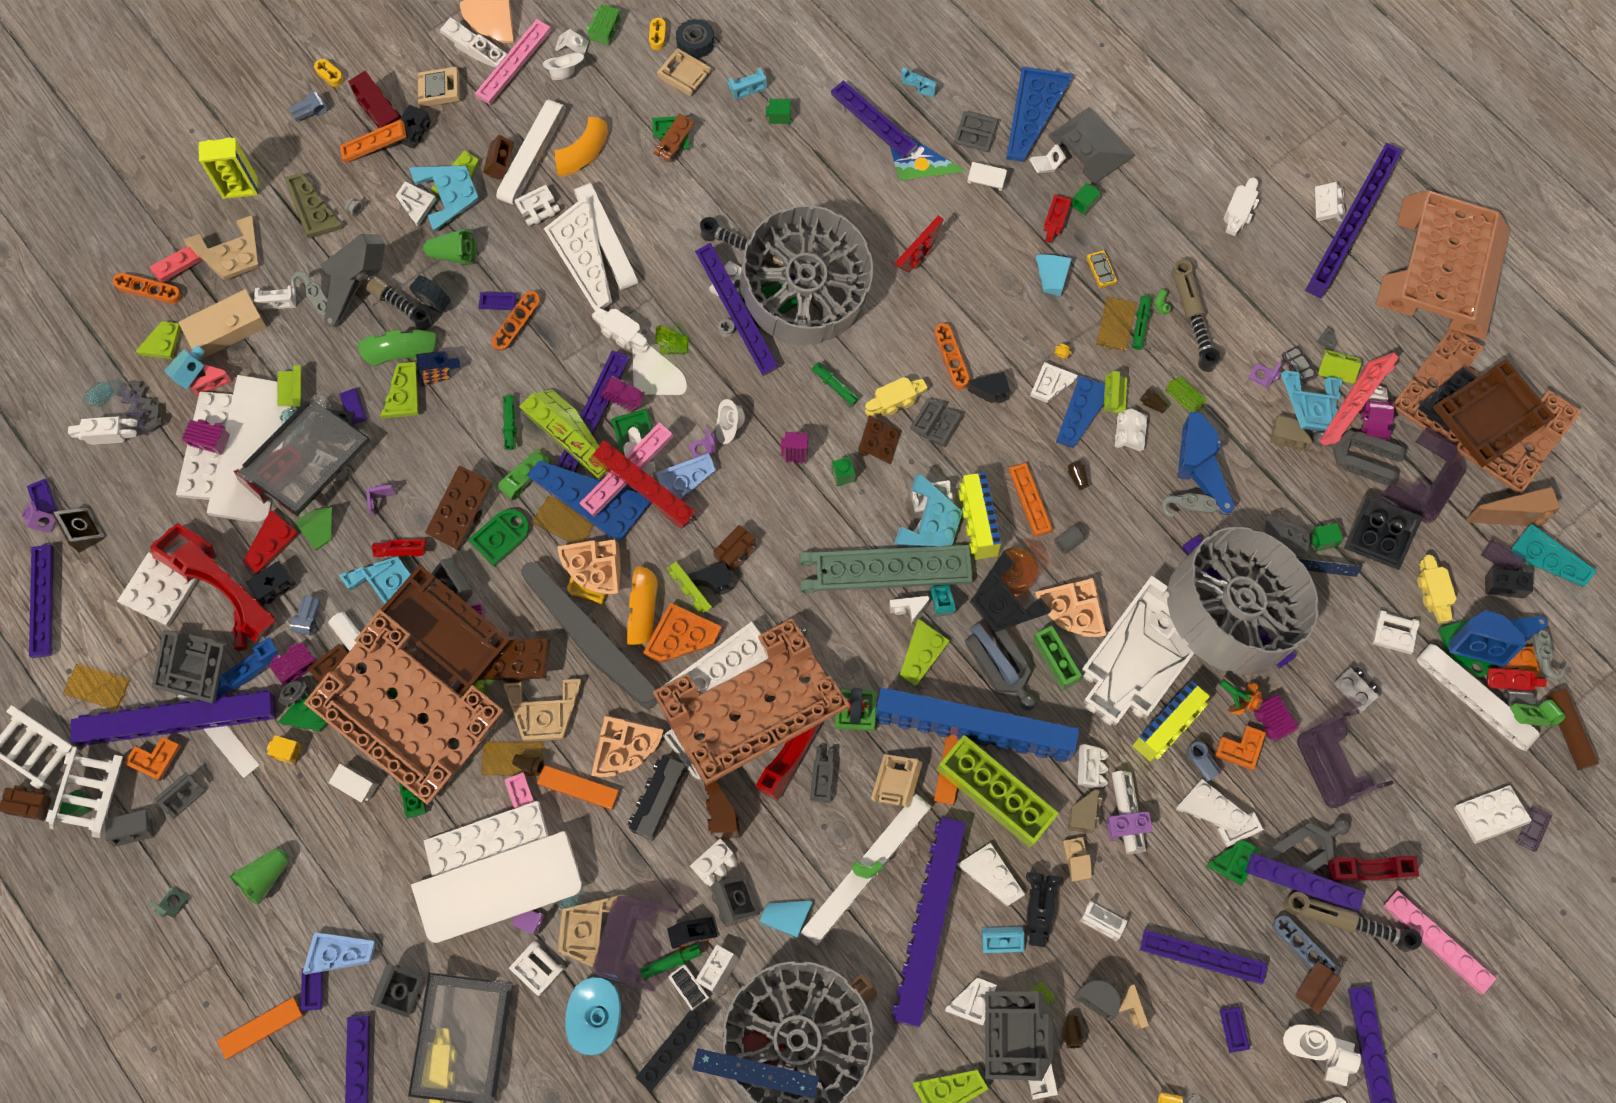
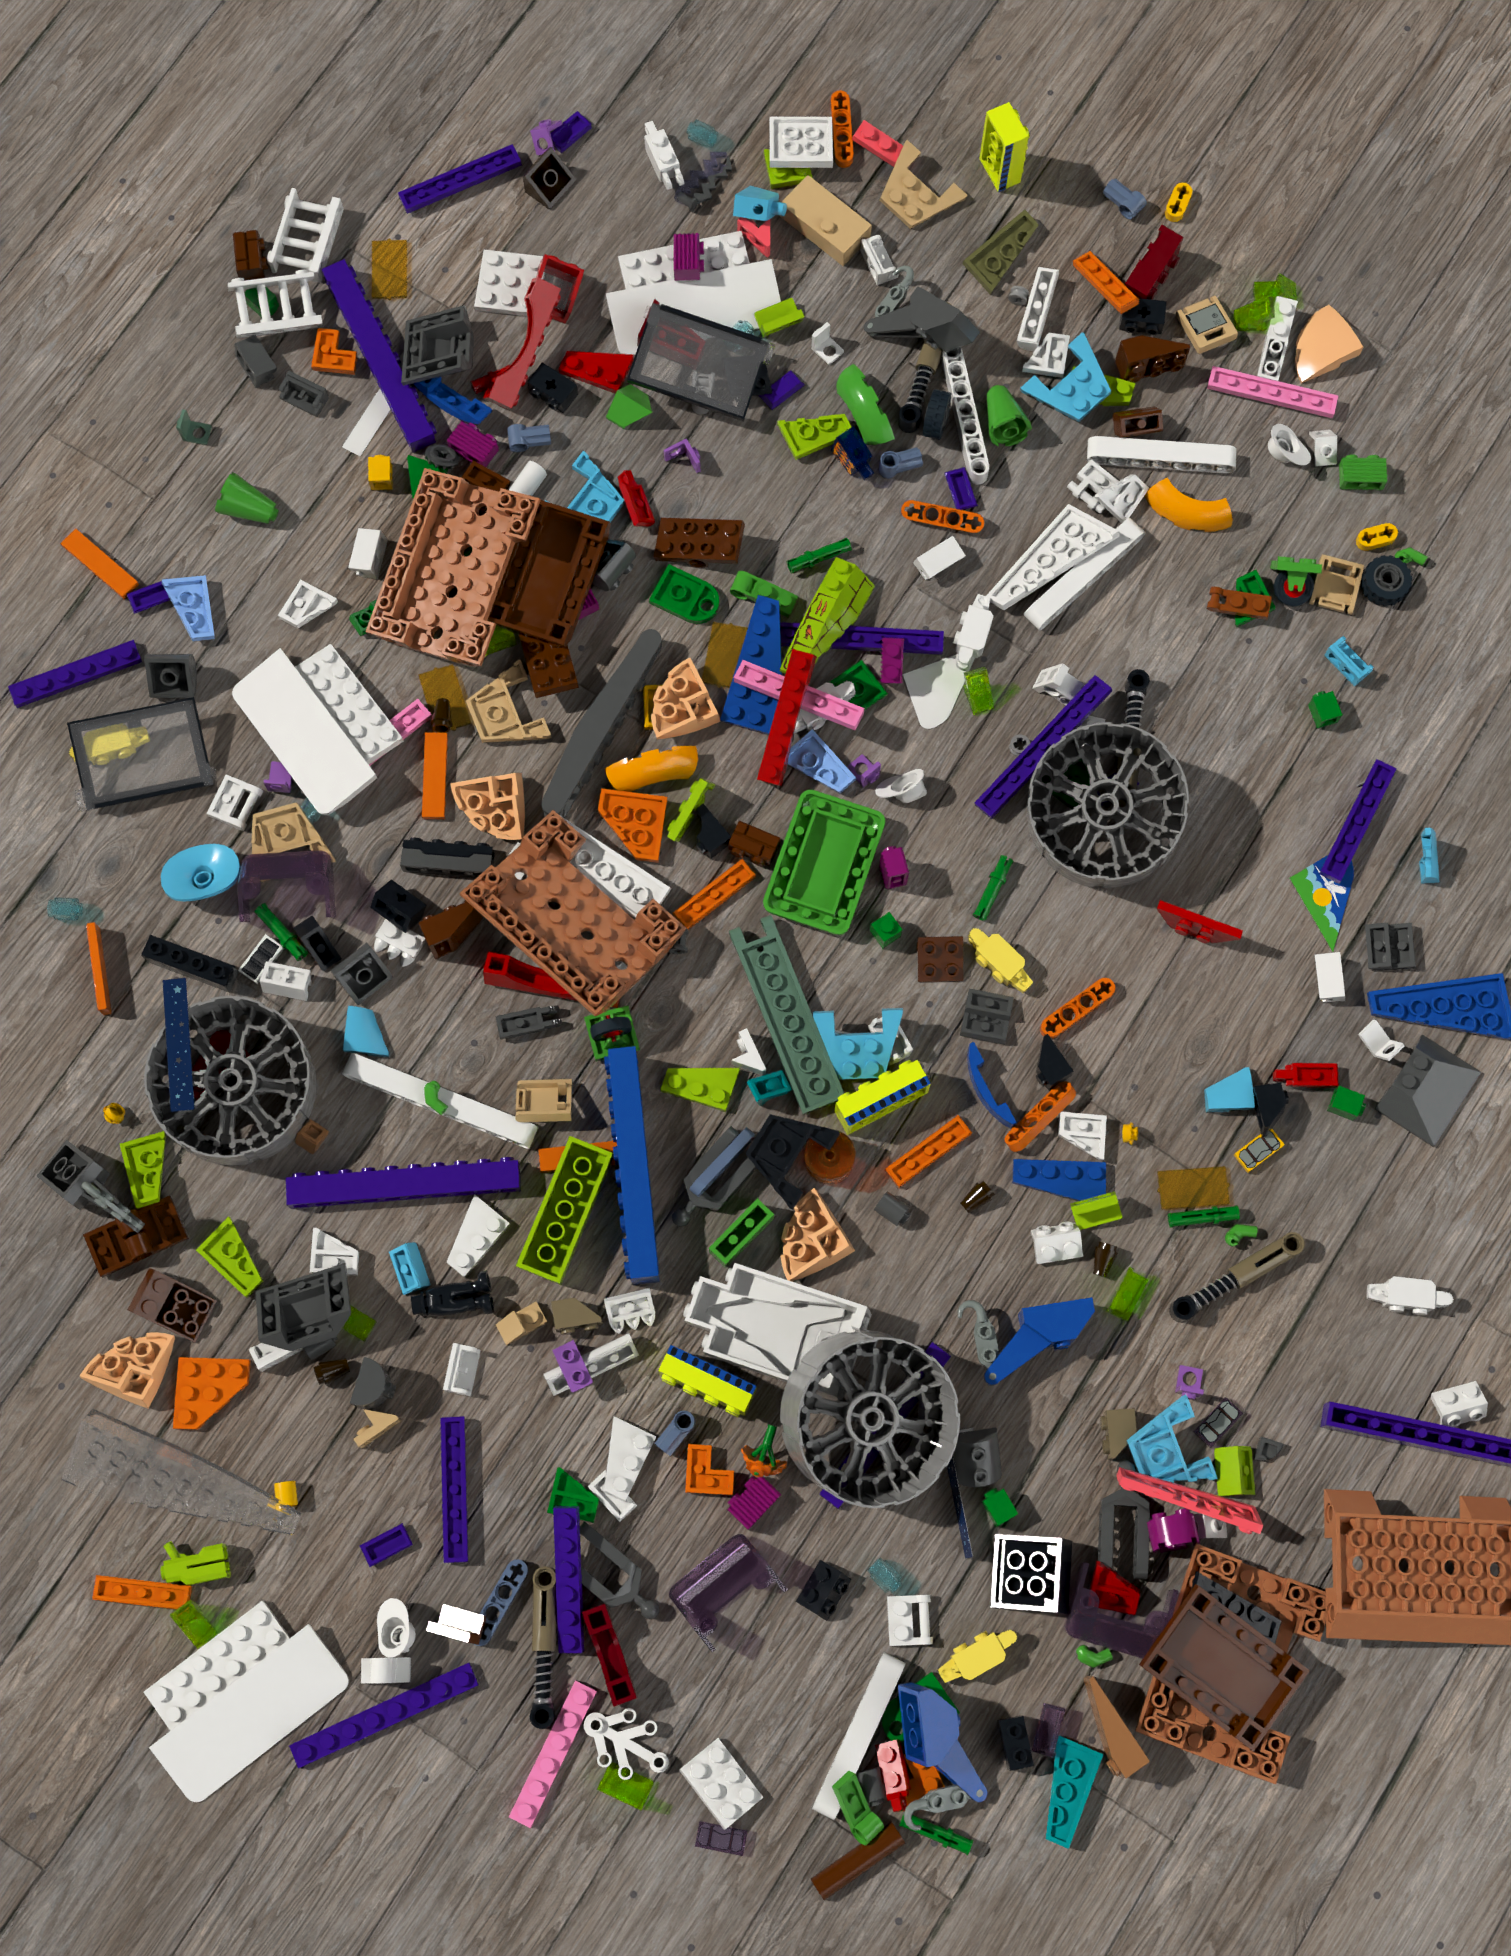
camera: 70 degrees right, 5 degrees up
(144, 320) = (801, 142): none -> white plate
(325, 361) = (822, 339): none -> white bracket
(372, 196) = (1037, 308): none -> white brick
(378, 851) = (305, 604): none -> white wing
(431, 37) = (1280, 287): none -> clear neon green slope
(445, 273) = (965, 422): none -> white beam
(446, 50) = (1254, 315): none -> clear neon green slope
(449, 131) = (1150, 357): none -> reddish brown slope
(455, 336) = (901, 462): none -> sand blue piece
(549, 334) = (939, 558): none -> white hinge
(555, 188) = (1123, 497): none -> white wing
(673, 96) = (1294, 583): none -> plate
(681, 16) = (1409, 554): none -> bright green arm
(685, 851) = (398, 906): none -> black brick
(688, 282) = (1058, 683): none -> white tile
(764, 592) = (714, 894): none -> orange tile
(771, 498) = (824, 862): none -> bright green wedge
(970, 441) = (1001, 1112): none -> blue slope
(1032, 406) = (1017, 1139): none -> orange beam
(1073, 247) = (1269, 1105): none -> black slope
(1358, 638) = (885, 1575): none -> clear light blue brick
(1410, 474) = (1114, 1591): none -> red wing
(1440, 882) = (622, 1740): none -> white plant
(1456, 508) = (1091, 1658): none -> bright green arm
(1478, 891) = (630, 1791): none -> clear neon green panel
(1568, 657) = (940, 1834): none -> green pin

